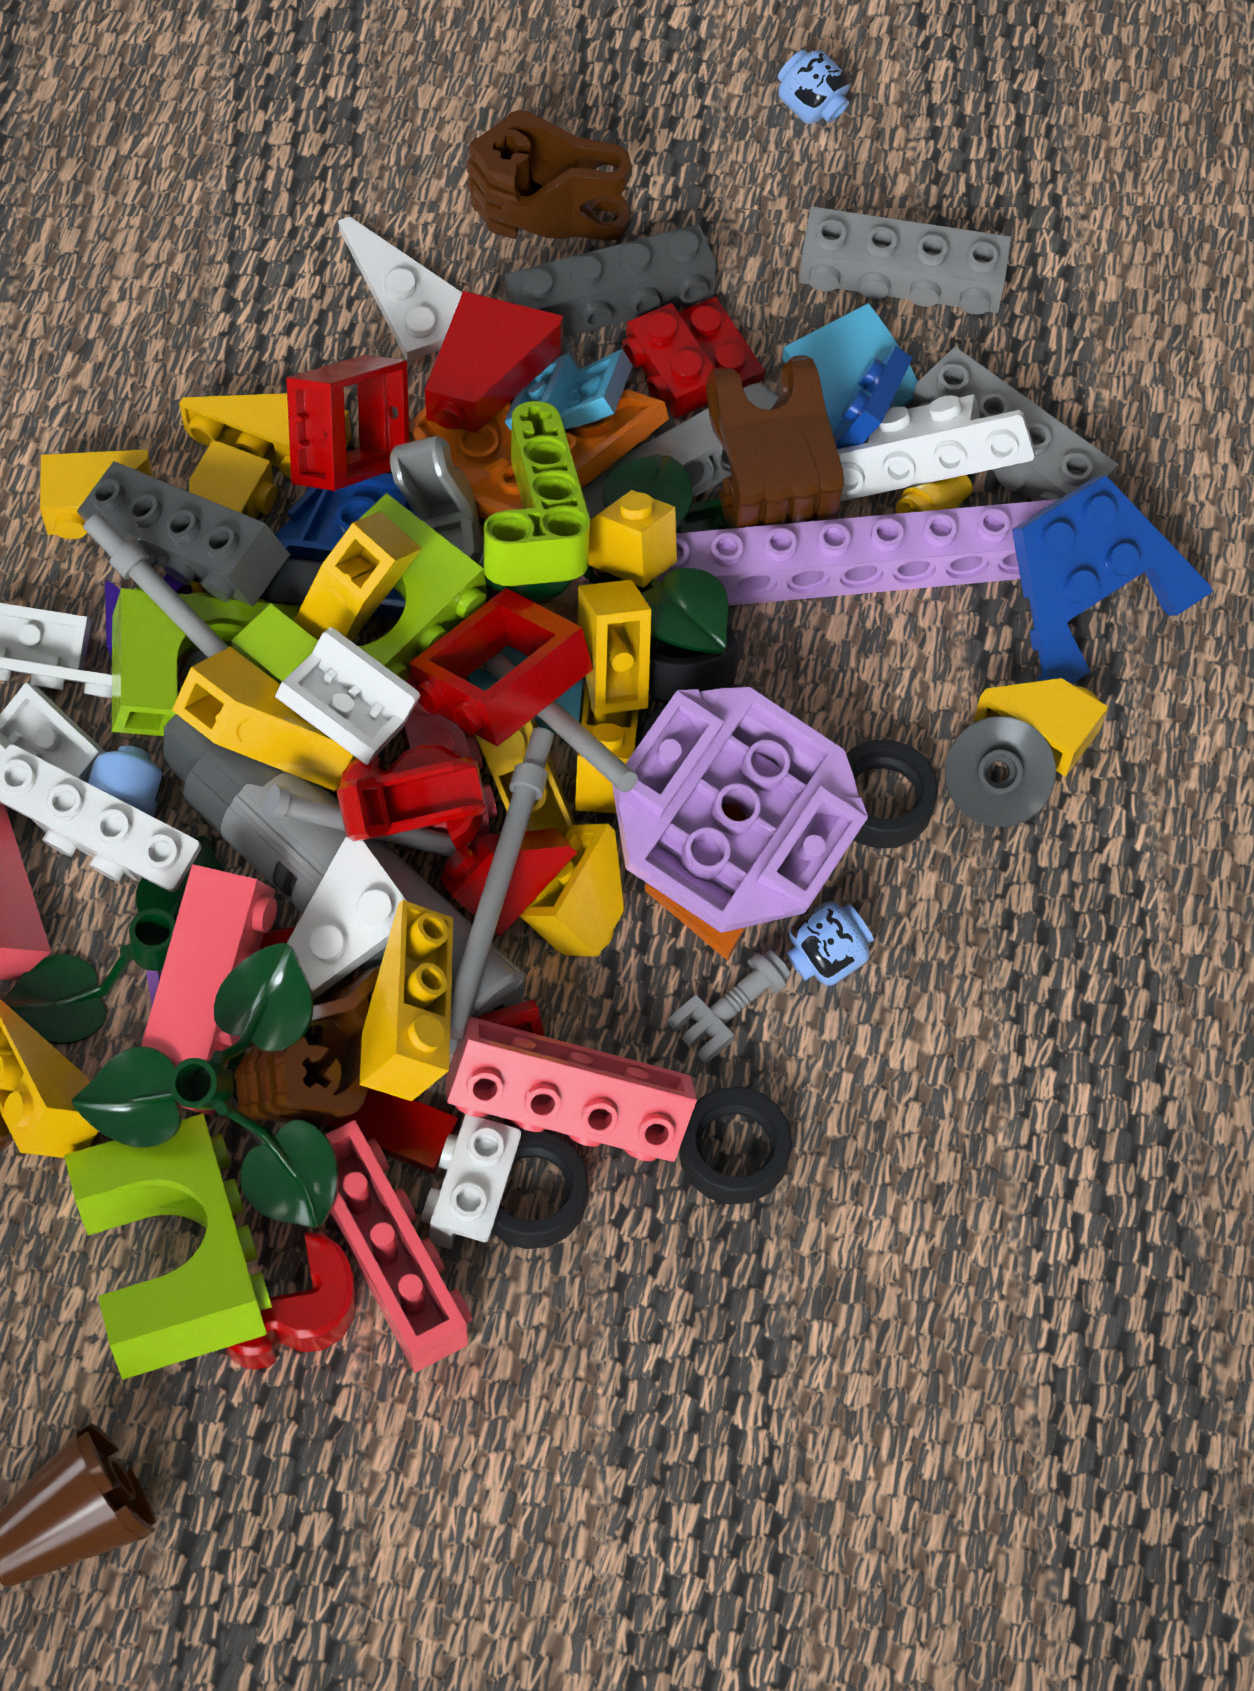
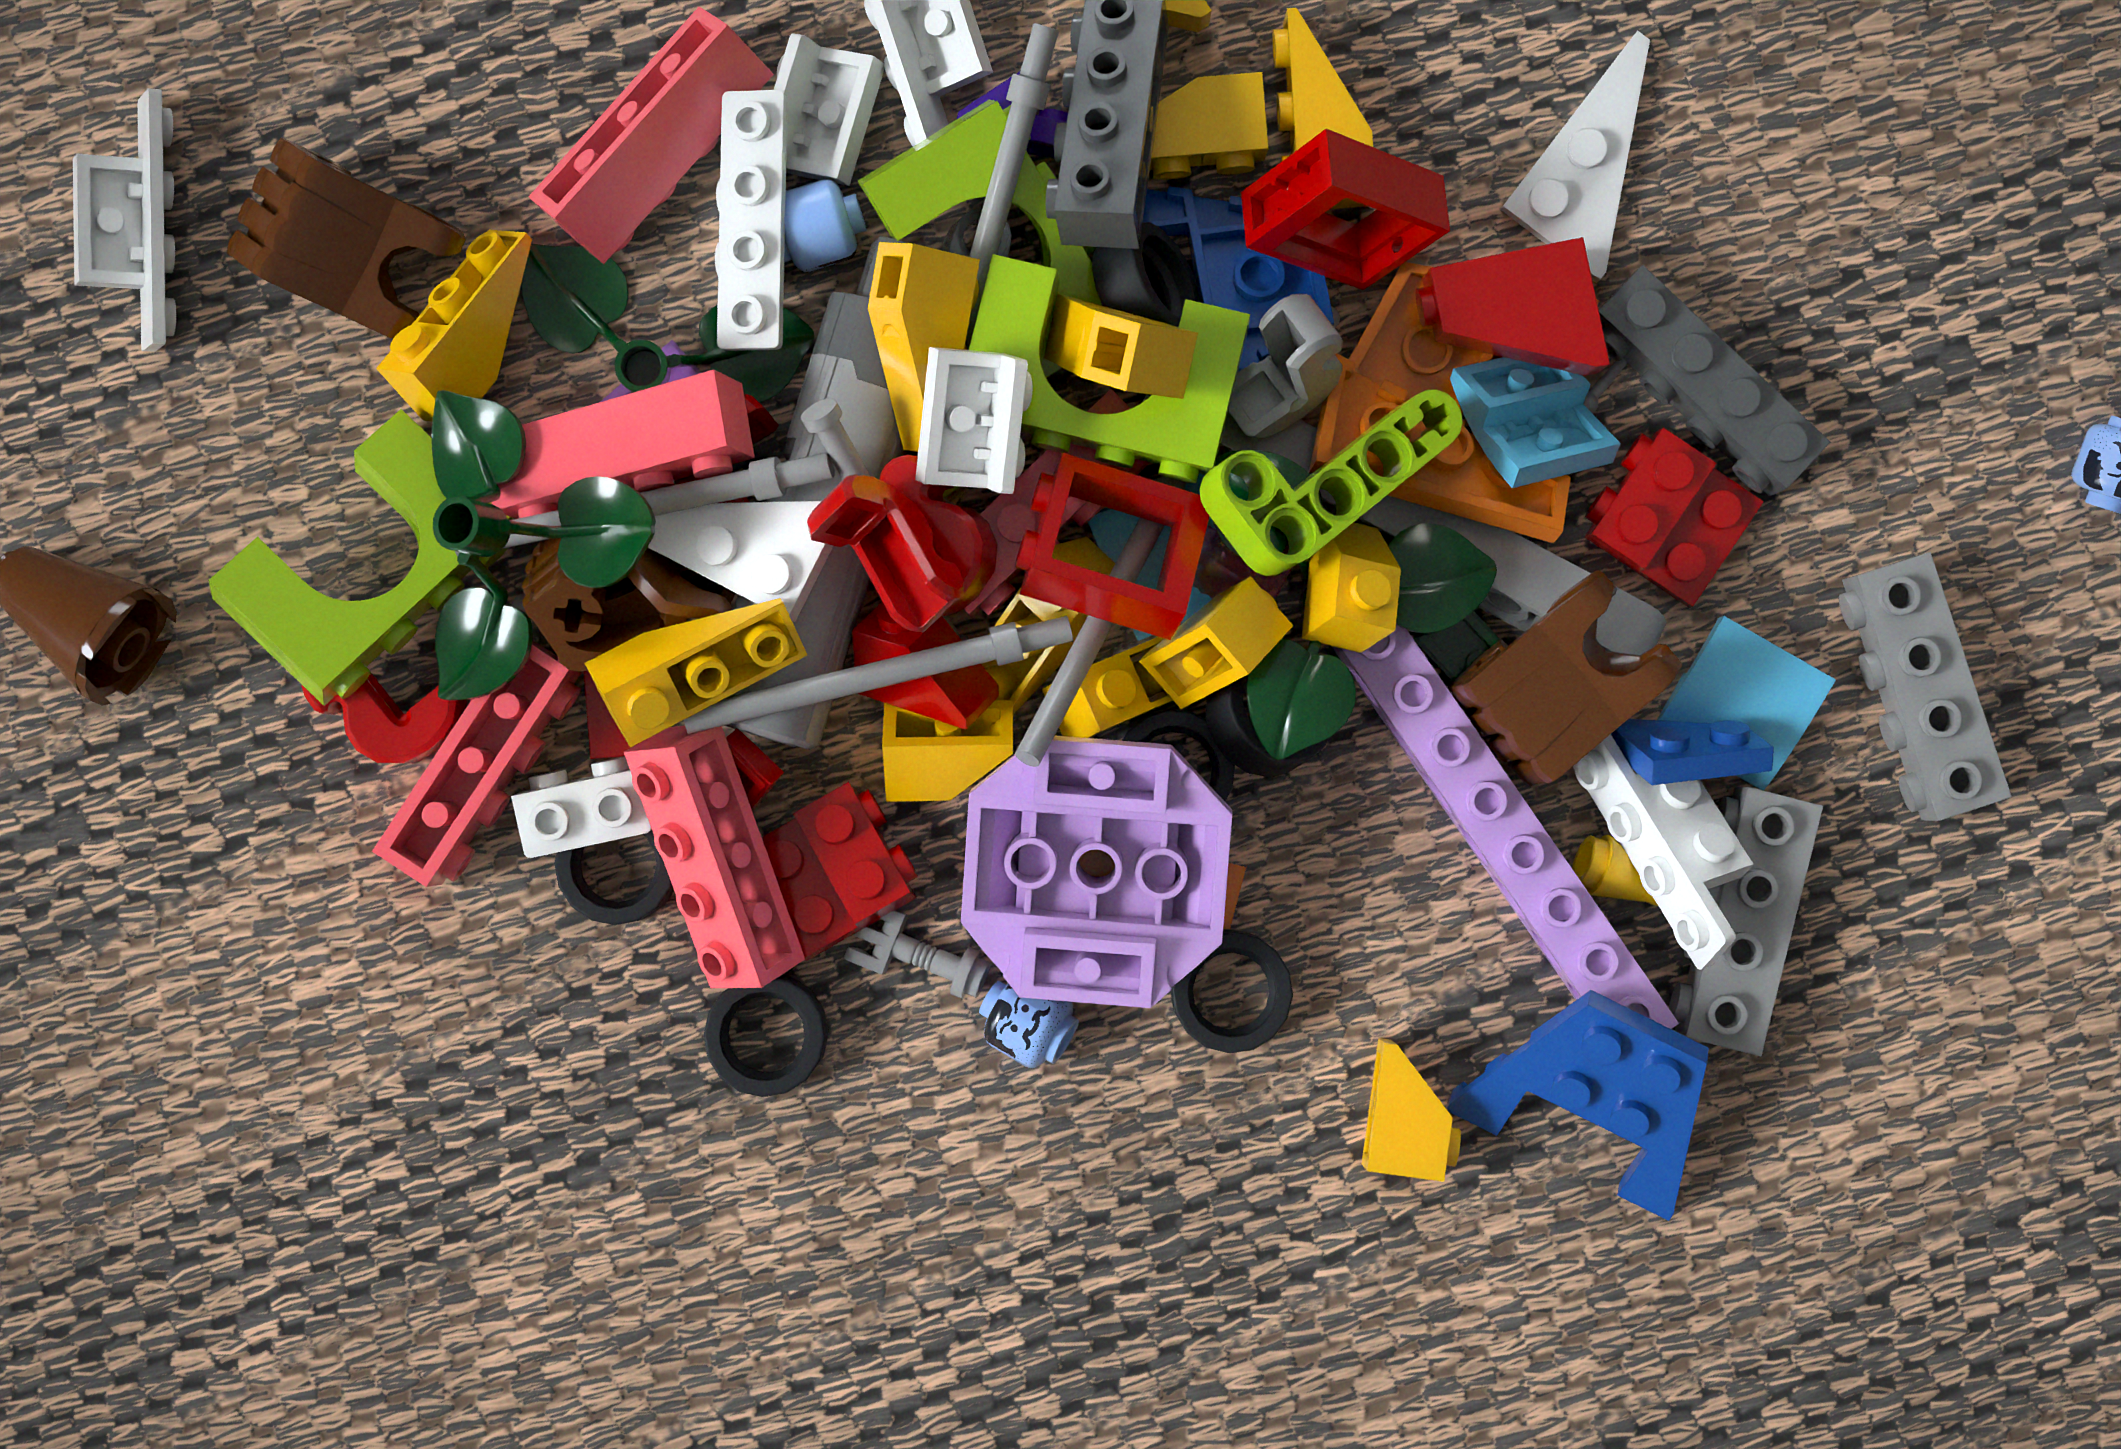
camera: 65 degrees right, 25 degrees up
(297, 881) = (764, 479): none -> light grey bar
(537, 155) = (1822, 192): reddish brown piece -> none
(632, 1011) = (838, 868): none -> red plate
(1028, 778) = (1298, 1118): dark grey dish -> none

